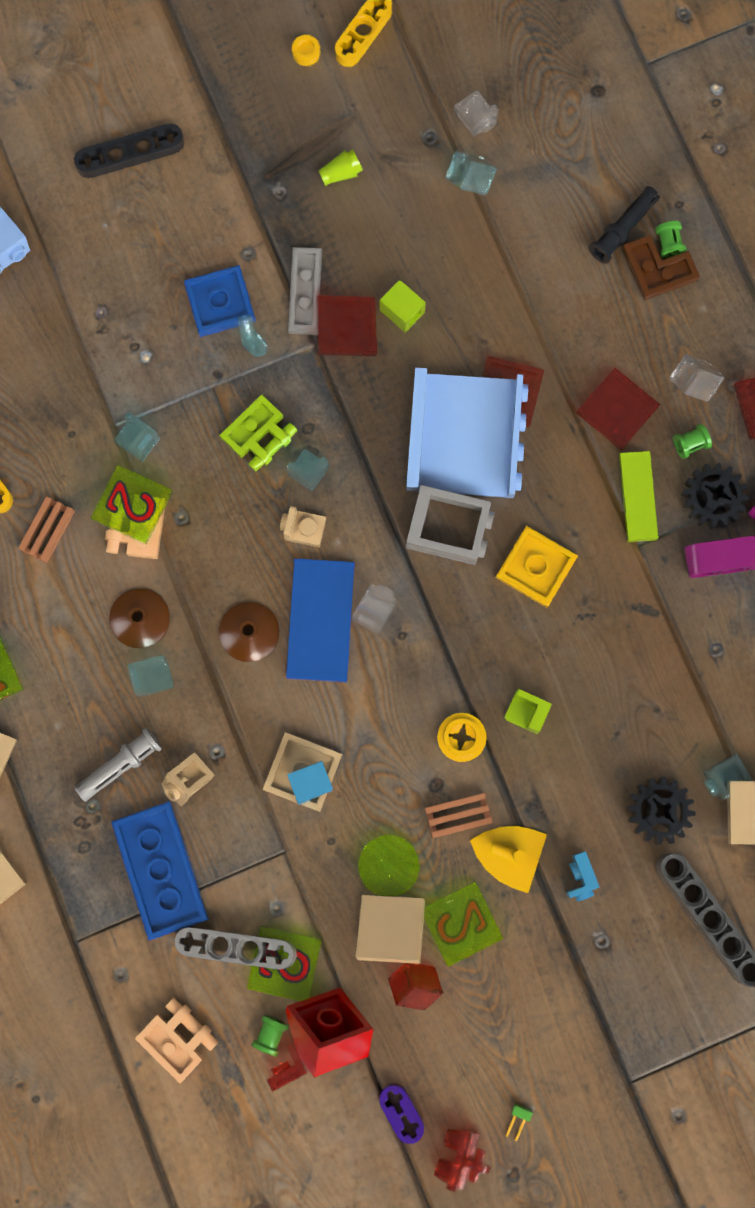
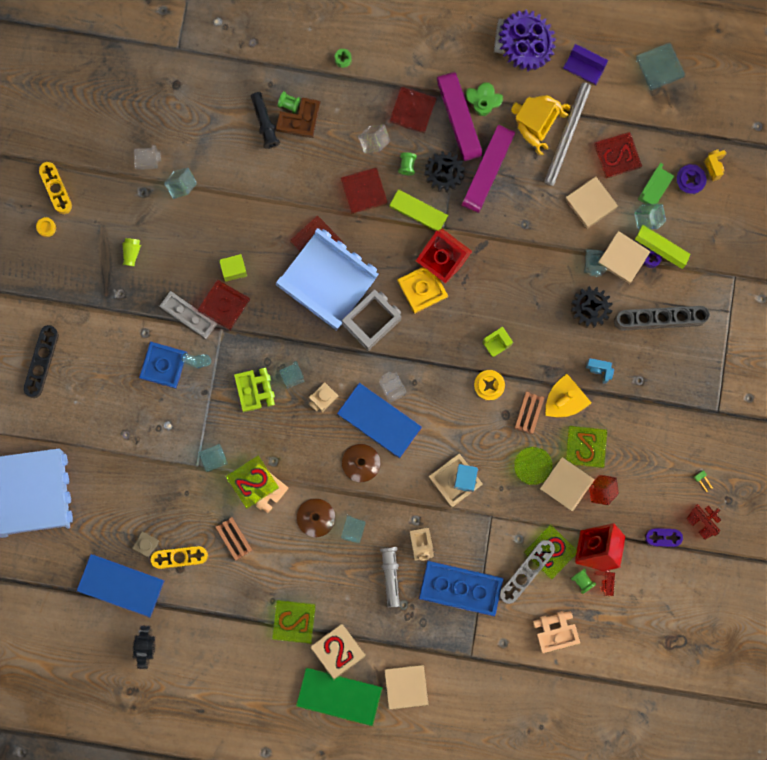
camera: 65 degrees left, 0 degrees up
(599, 565) = (443, 255): none -> red slope

